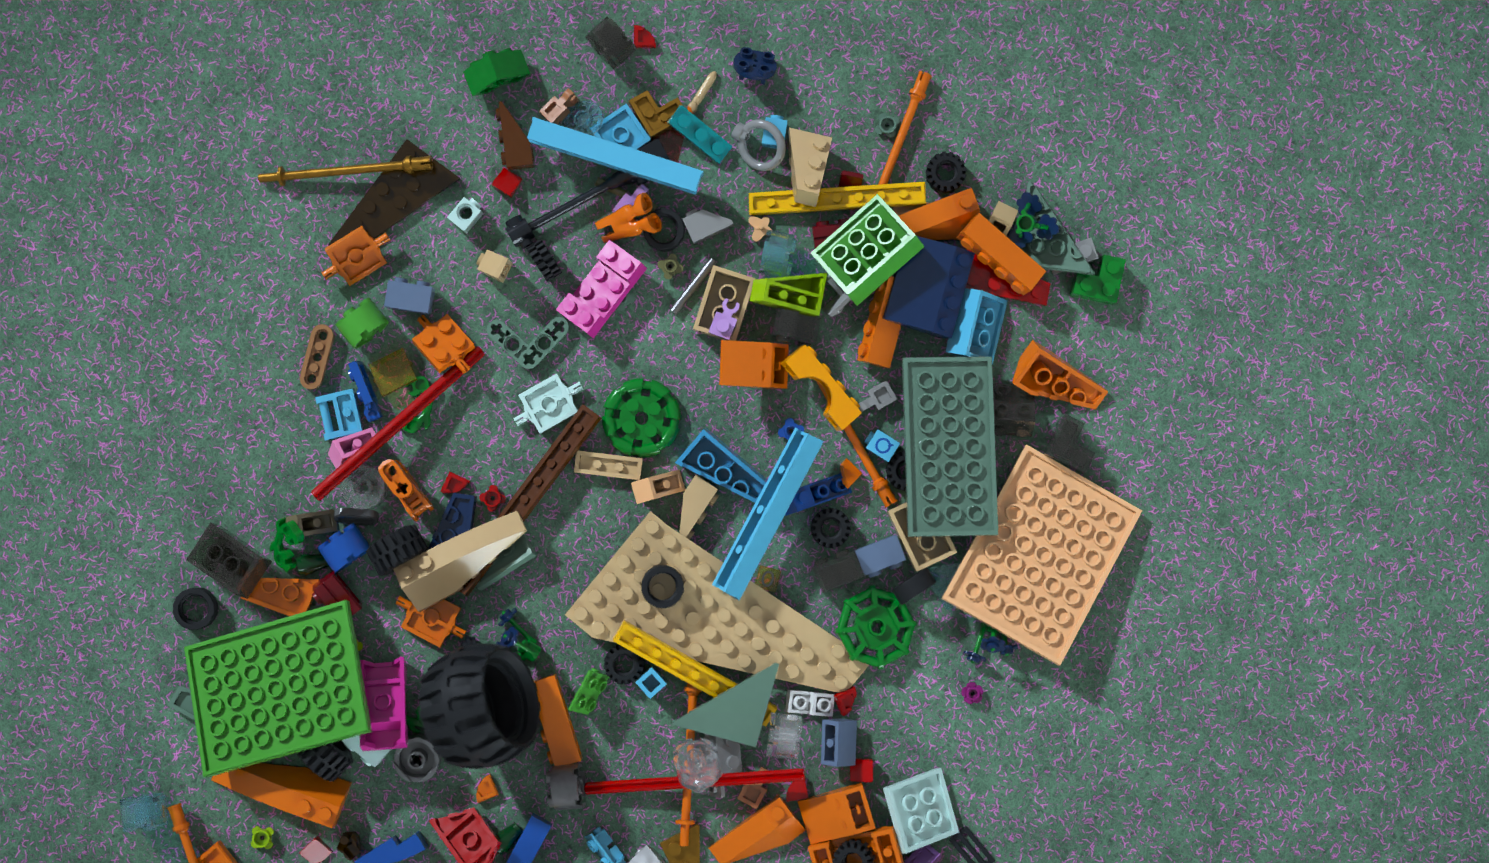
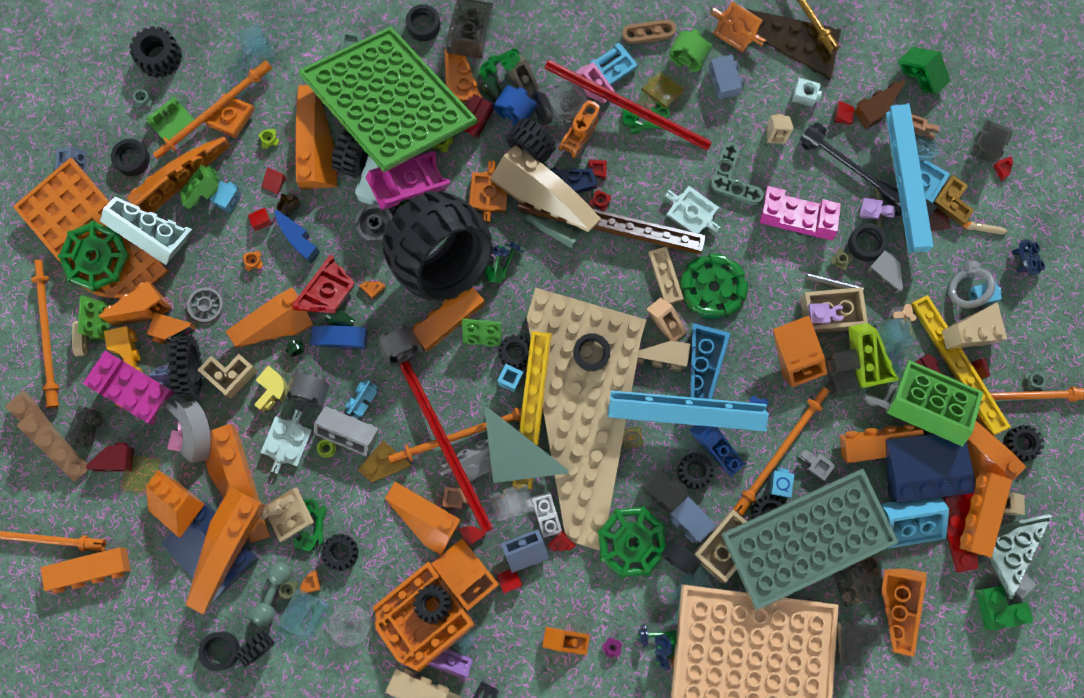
camera: 65 degrees right, 10 degrees down
(365, 390) = (639, 75): blue hinge -> none
(443, 343) = (702, 115): orange plate -> none
(544, 260) = (801, 161): black tyre -> none
(625, 222) = (860, 208): orange piece -> none
(697, 764) = (460, 439): clear brick -> none
(699, 134) = (955, 237): teal plate -> none
(840, 408) = (818, 391): light orange arch -> none
(849, 473) = (746, 467): orange tile -> none
(921, 810) = (497, 644): light aqua plate -> none
(946, 738) = (566, 641): none -> orange slope
(1026, 222) = (1025, 522): dark blue plant -> none

